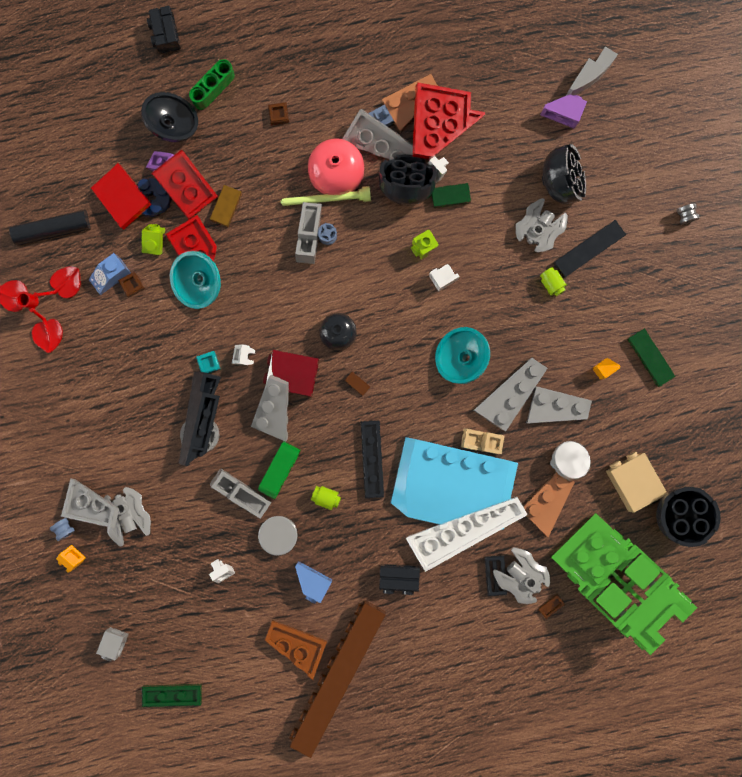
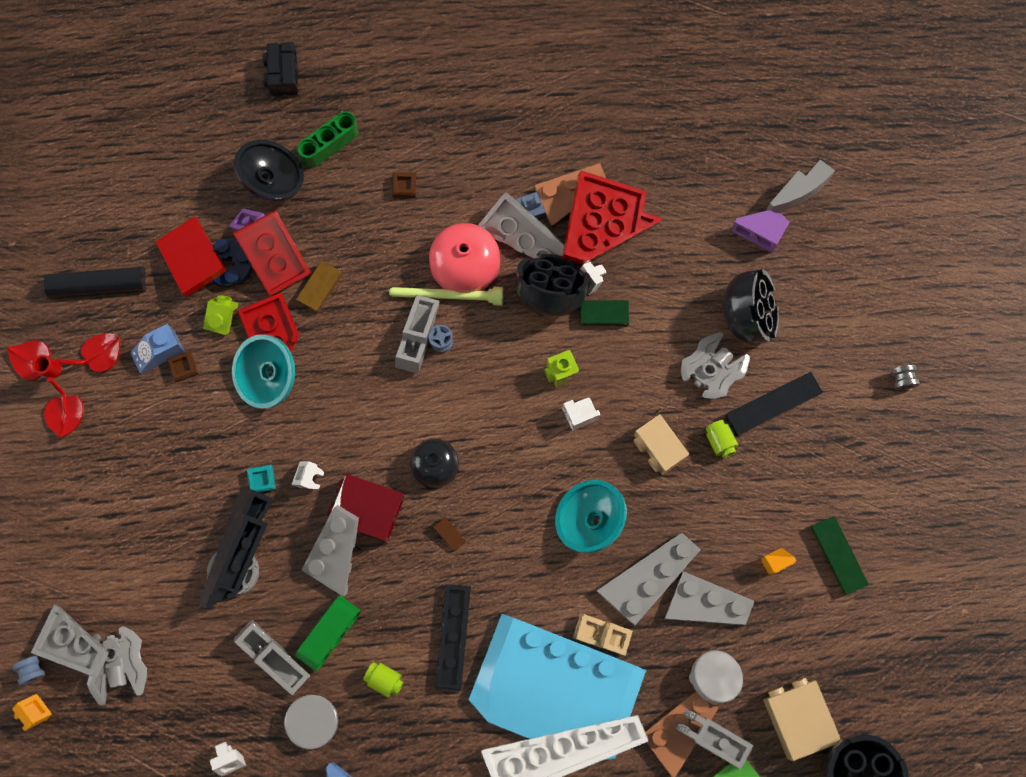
camera: 10 degrees right, 10 degrees down
(508, 293) = (660, 444): none -> tan brick
(577, 505) = (717, 740): none -> light grey hinge

